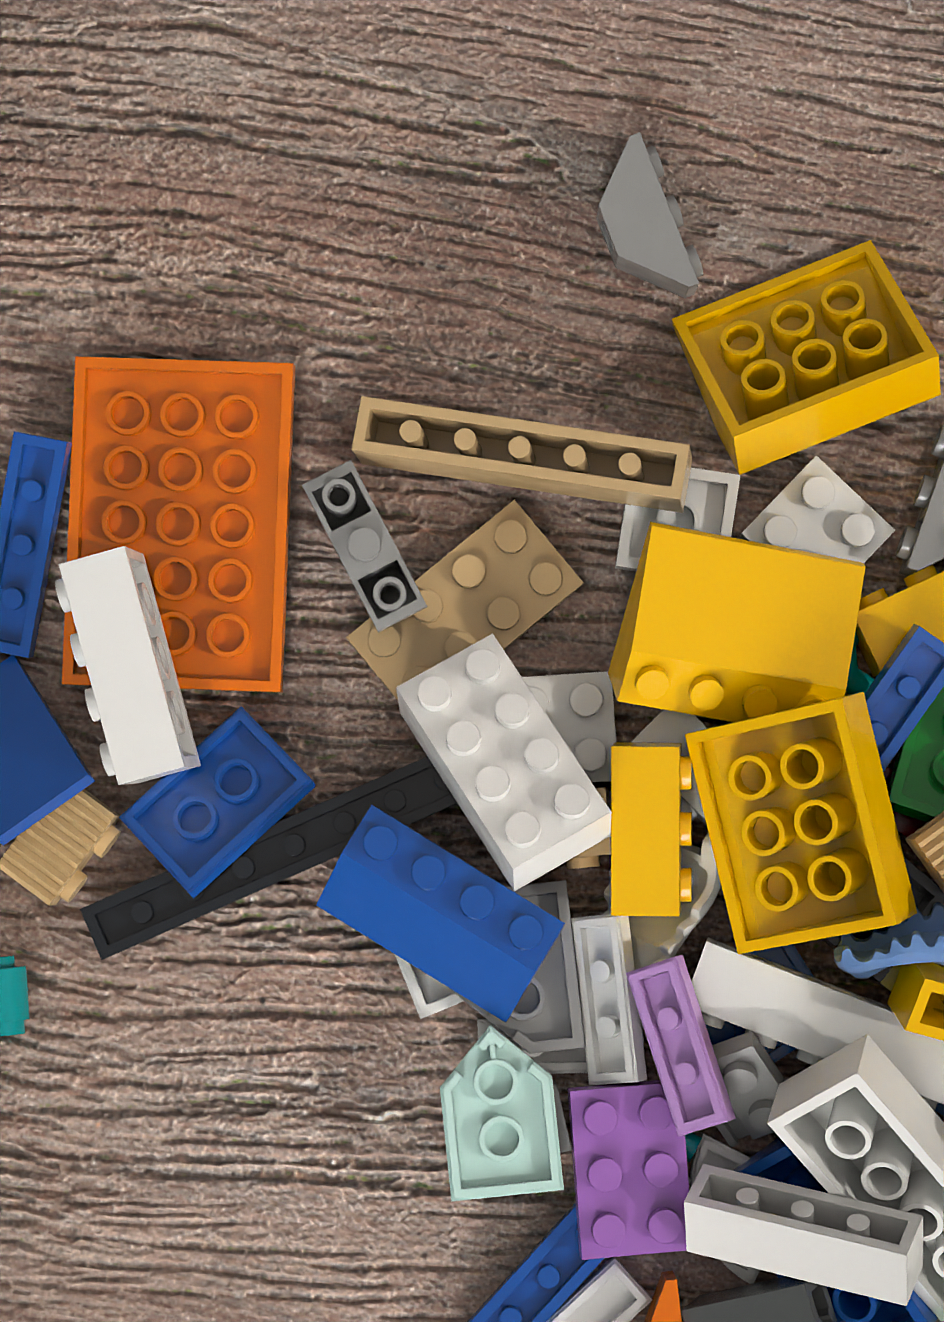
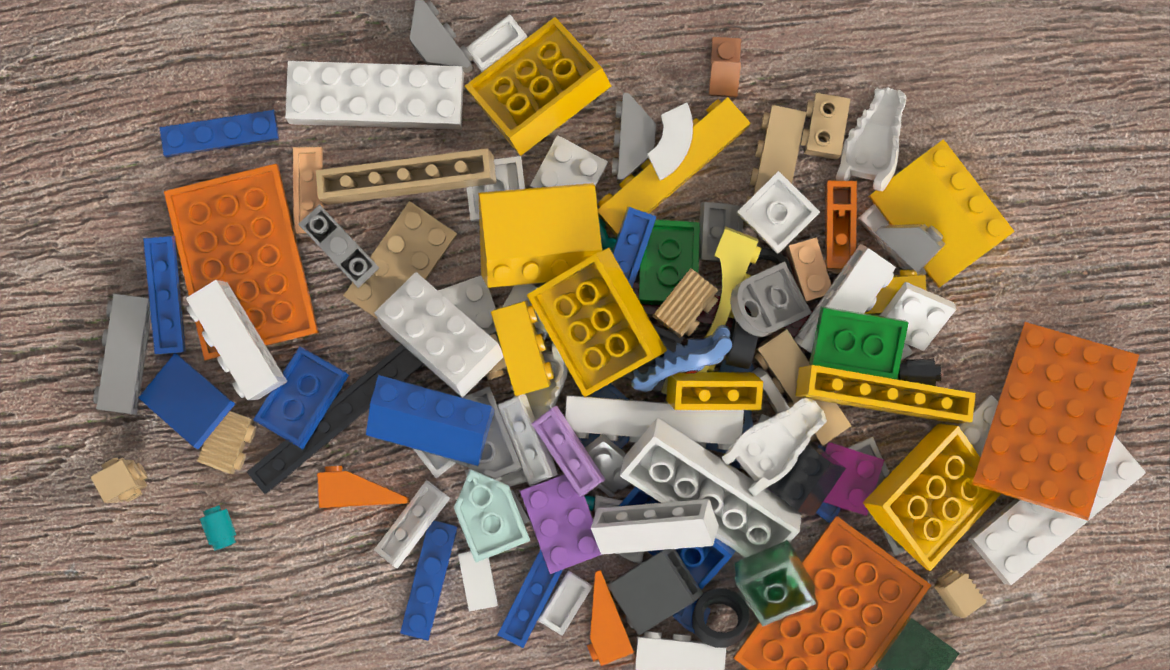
camera: 20 degrees left, 0 degrees up
(205, 280) = (219, 133): none -> blue plate
(260, 997) = (348, 489): none -> orange slope
(334, 415) = (305, 195): none -> light nougat tile
(353, 1090) = (411, 524): none -> white tile
(355, 1201) = (429, 580): none -> blue plate
(442, 1232) = (477, 582): none -> white tile
(505, 289) = (374, 95): none -> white brick
(751, 257) = (496, 42): none -> white tile

